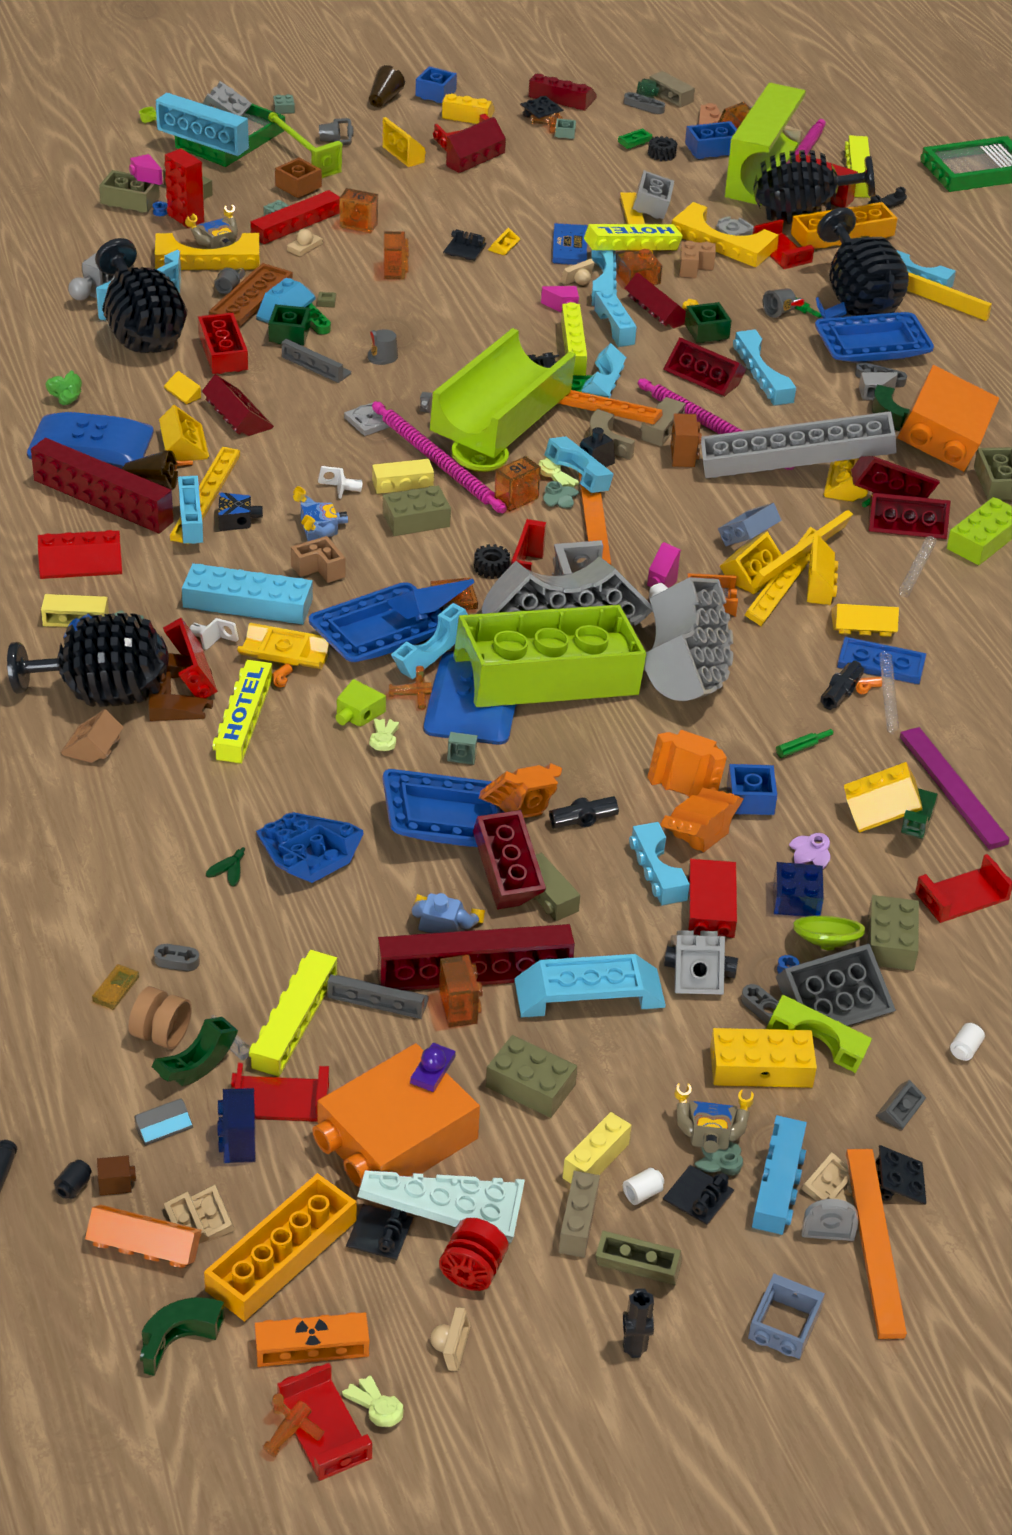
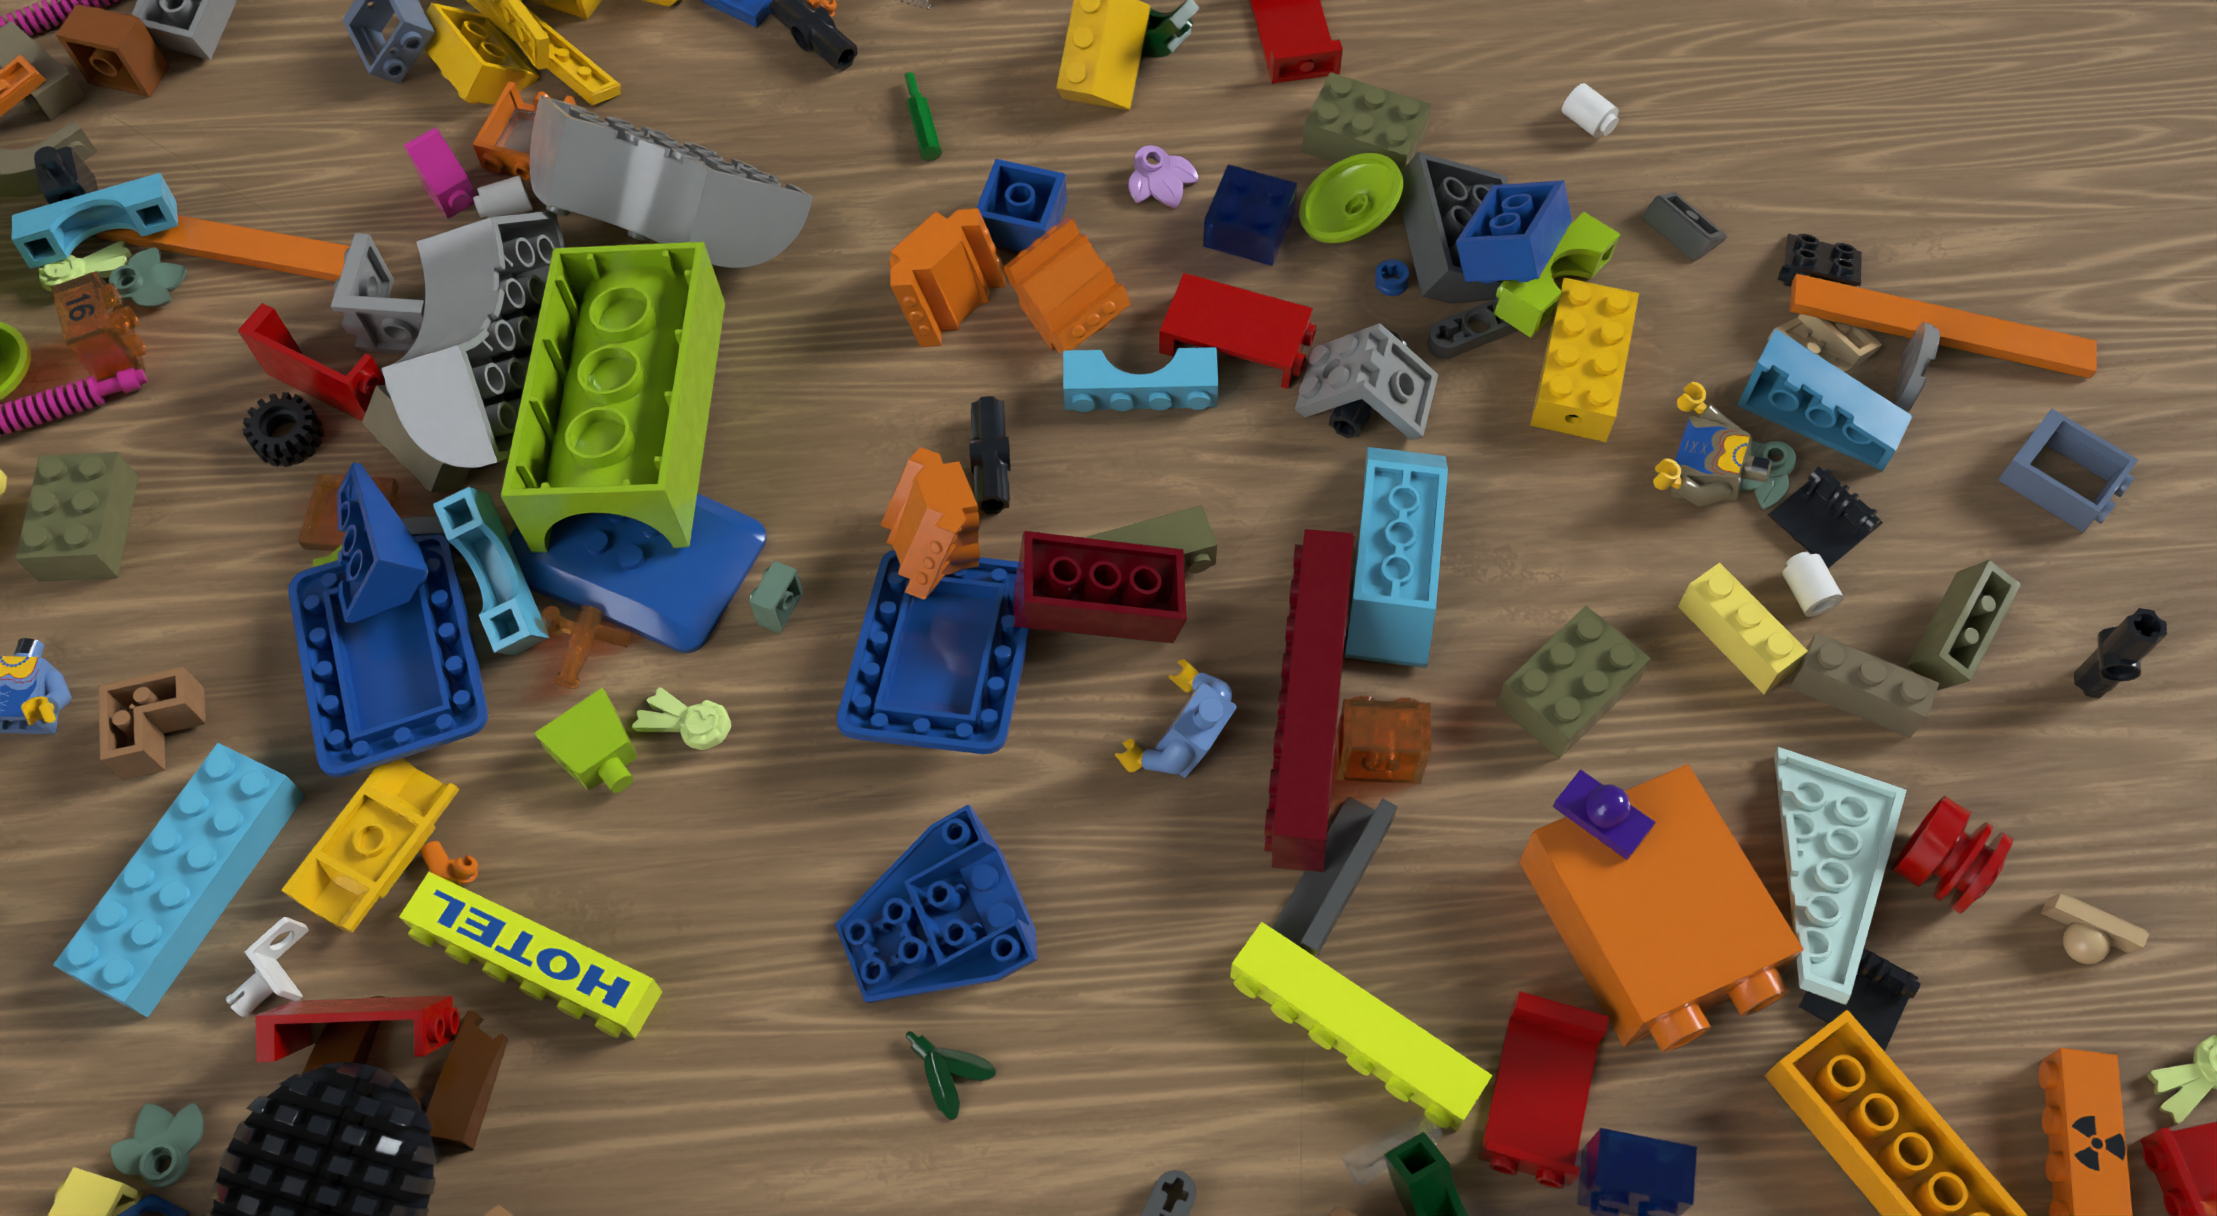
camera: 70 degrees left, 20 degrees up
(824, 991) = (1514, 232): none -> blue brick

